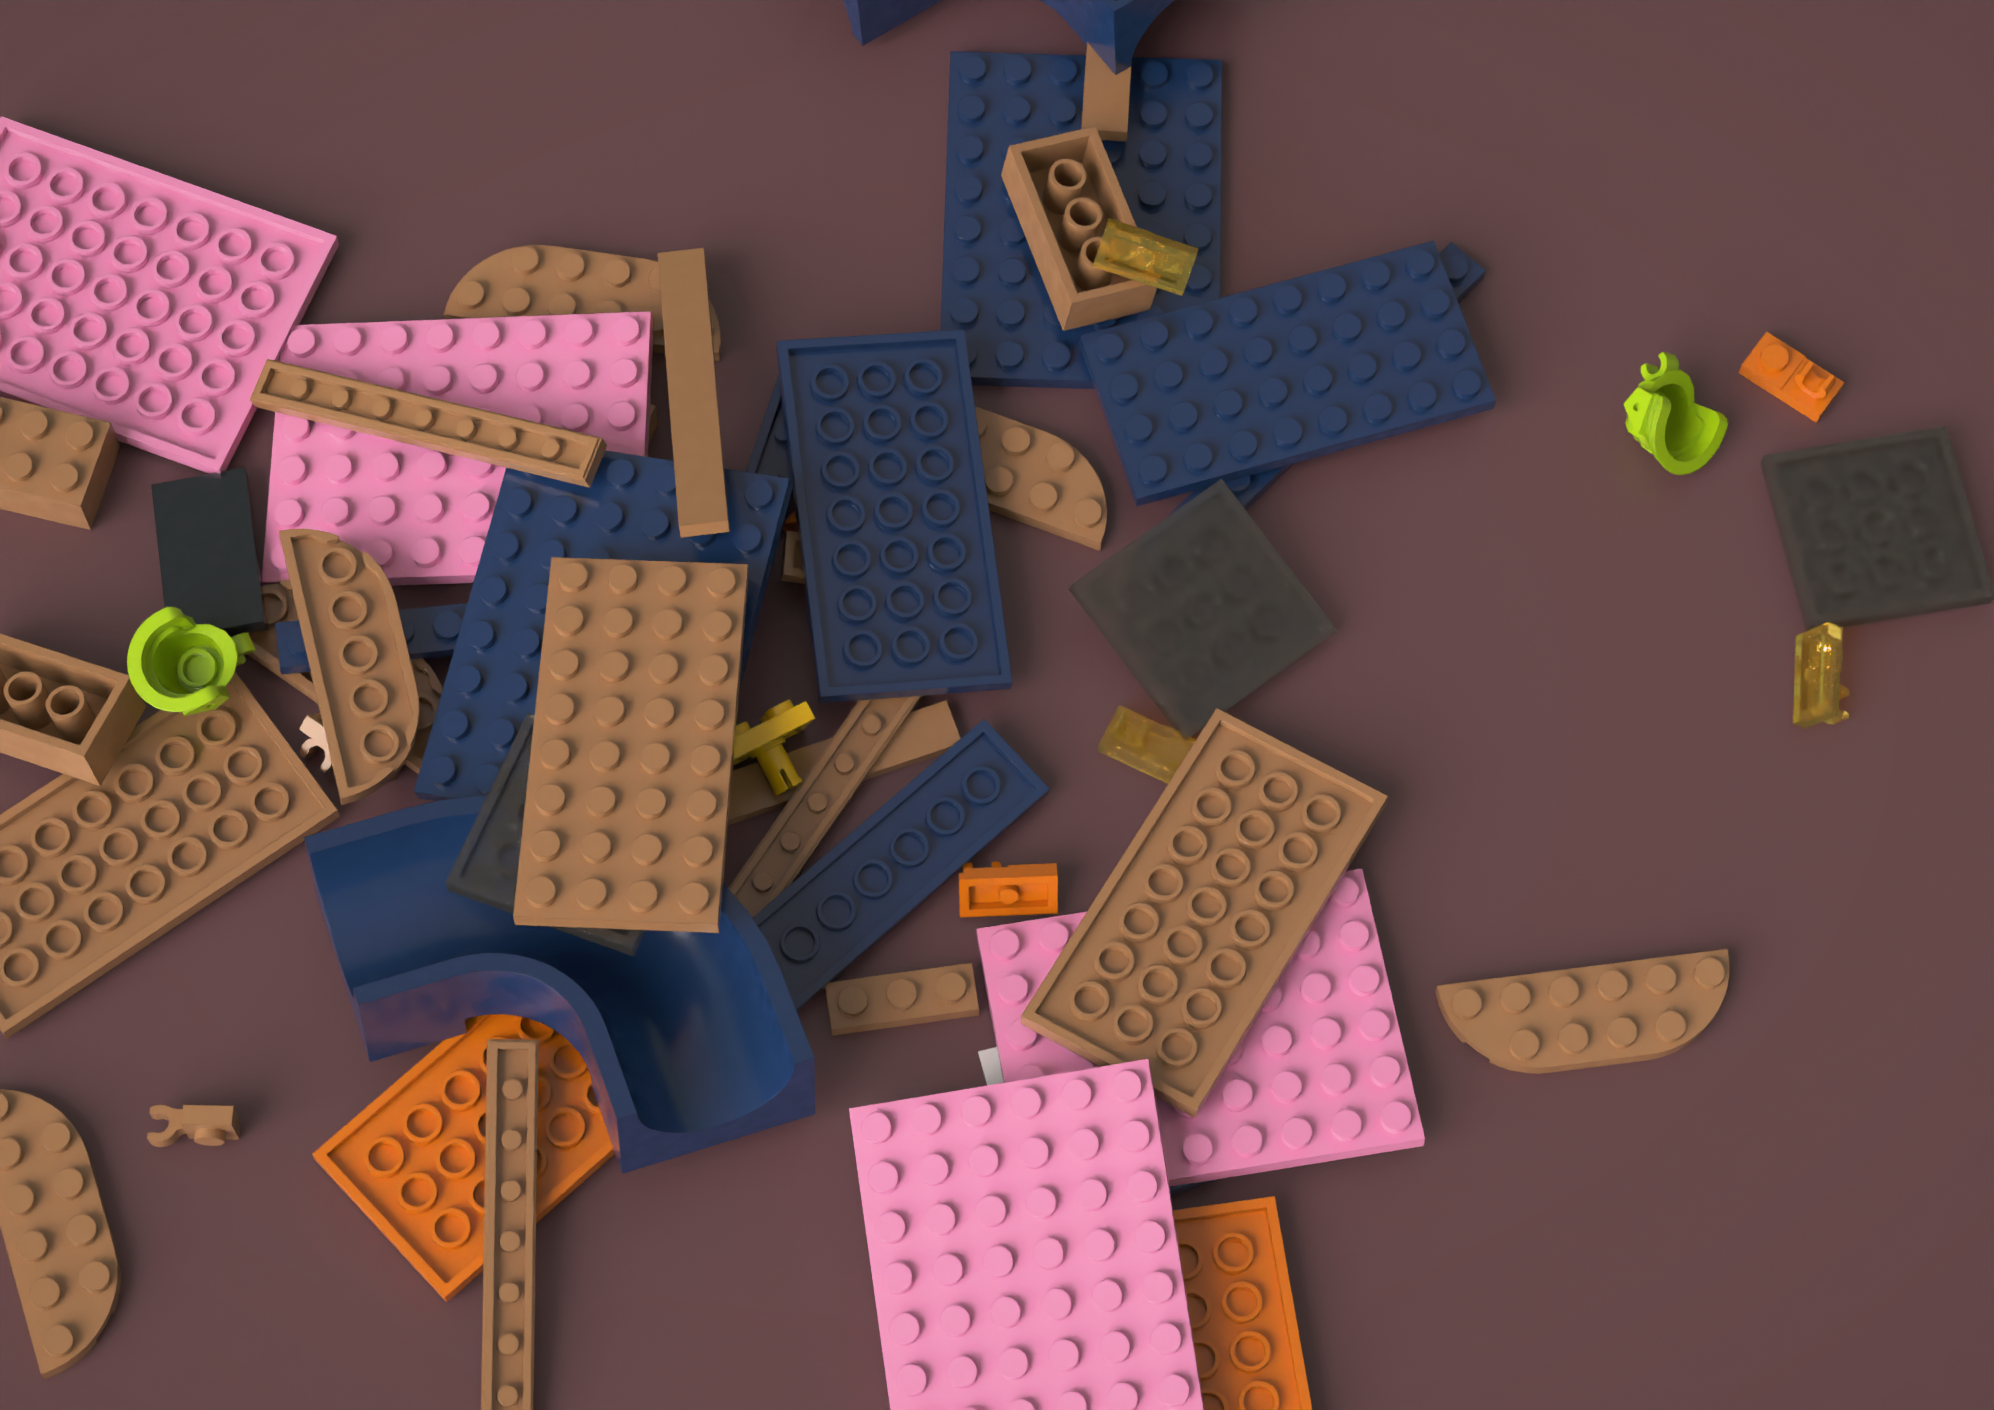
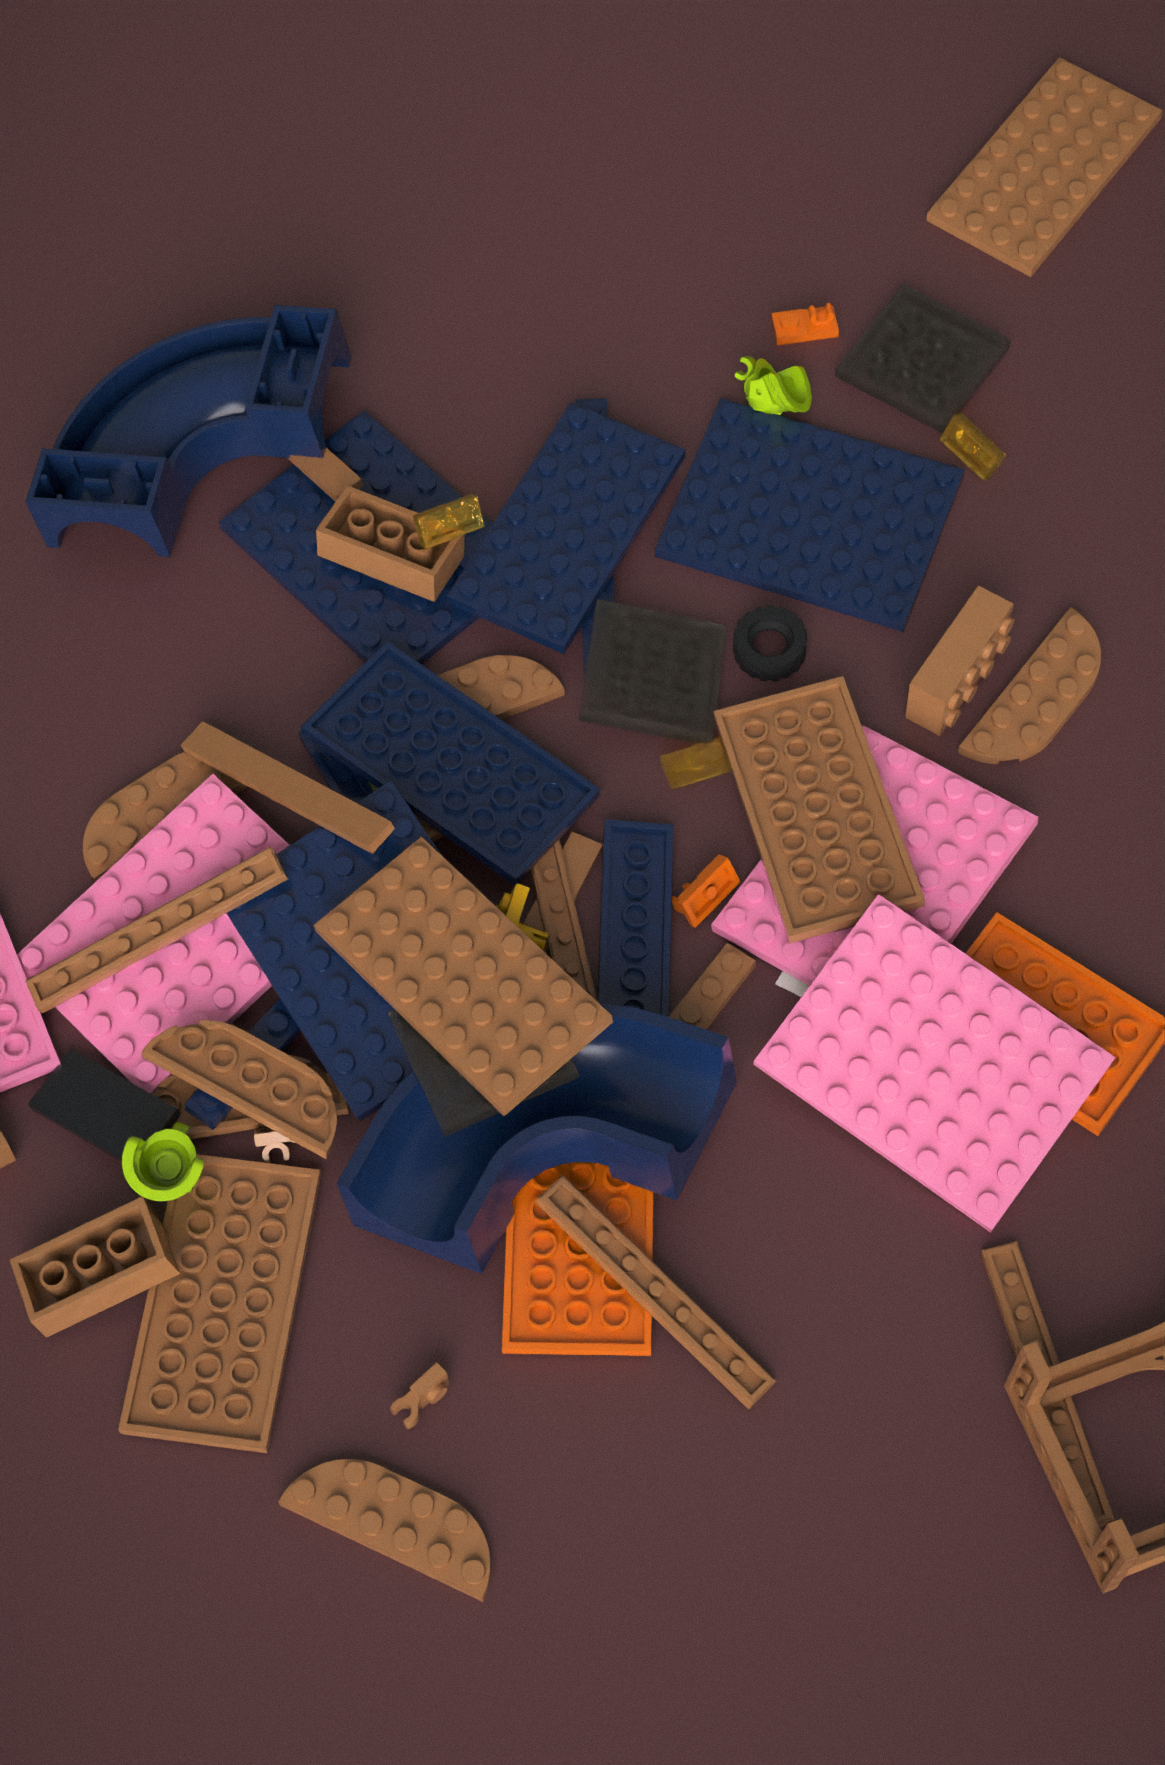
camera: 40 degrees left, 5 degrees down
(1368, 655) = (770, 619): none -> black tyre
(1530, 895) = (960, 661): none -> medium nougat brick
(1566, 592) = (810, 514): none -> dark blue plate

